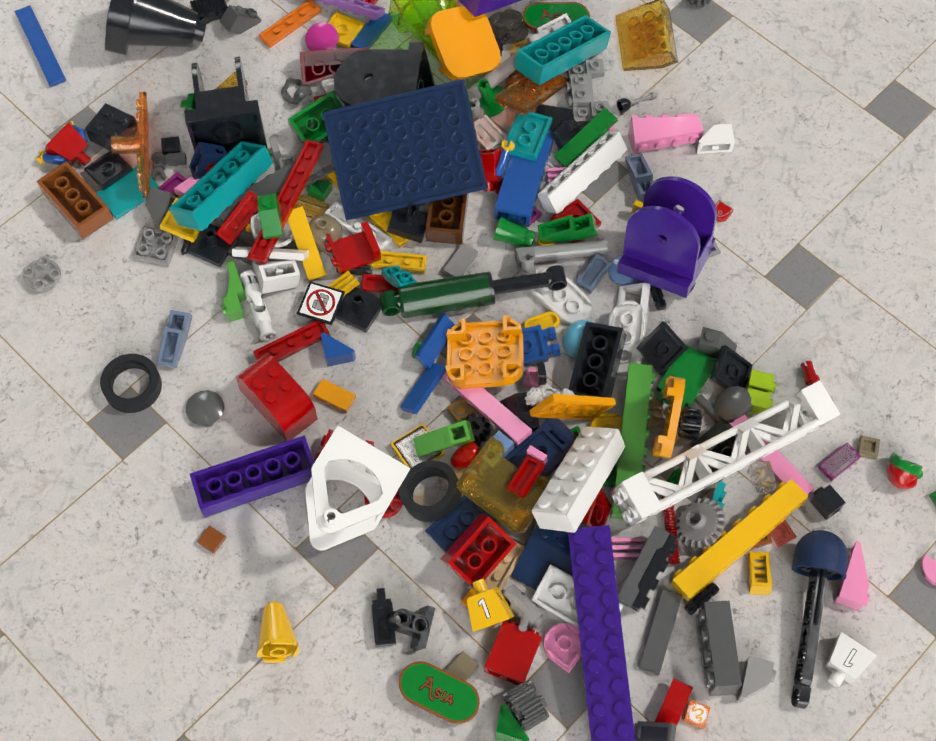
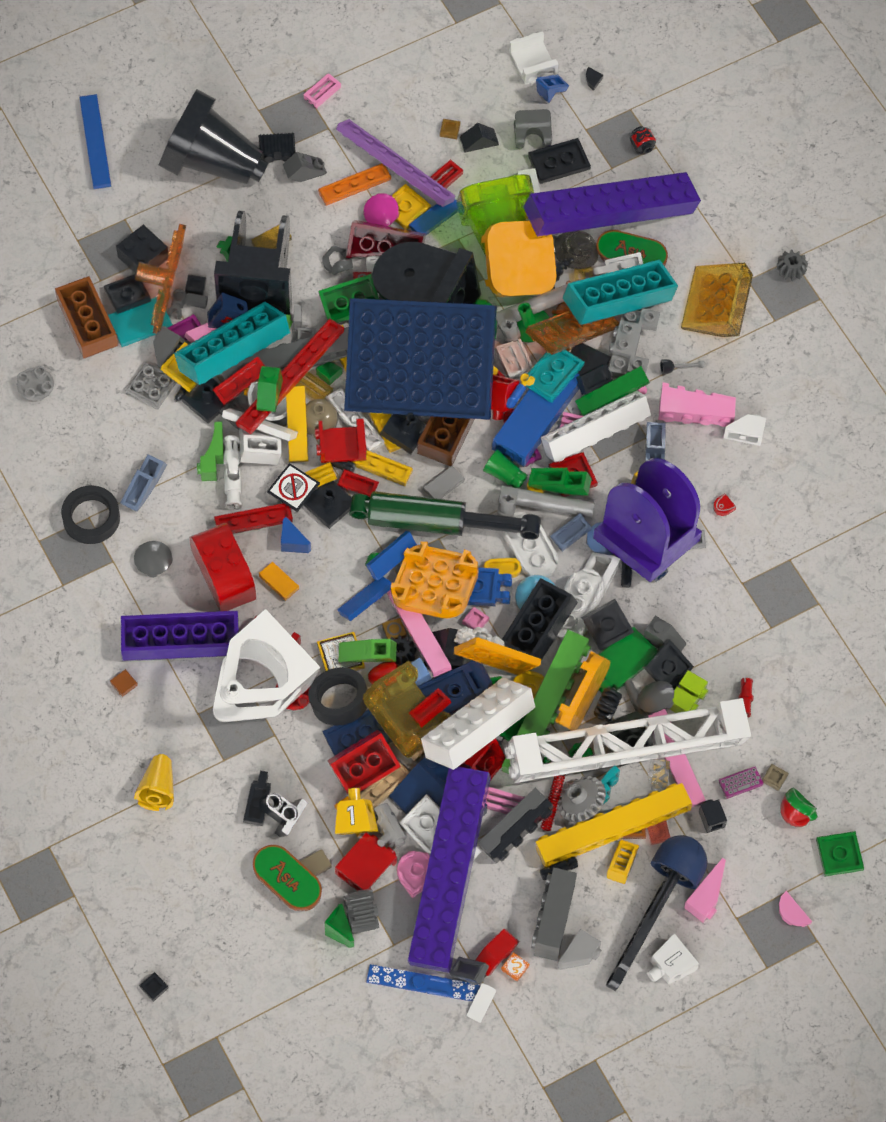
camera: 15 degrees right, 0 degrees up
(67, 146) = (93, 259): red torso -> none
(397, 276) = (375, 482): teal slope -> none
(535, 453) = (447, 690): bright pink tile -> none
(541, 373) = (481, 616): black tile -> none
(660, 632) = (509, 886): dark grey tile -> none

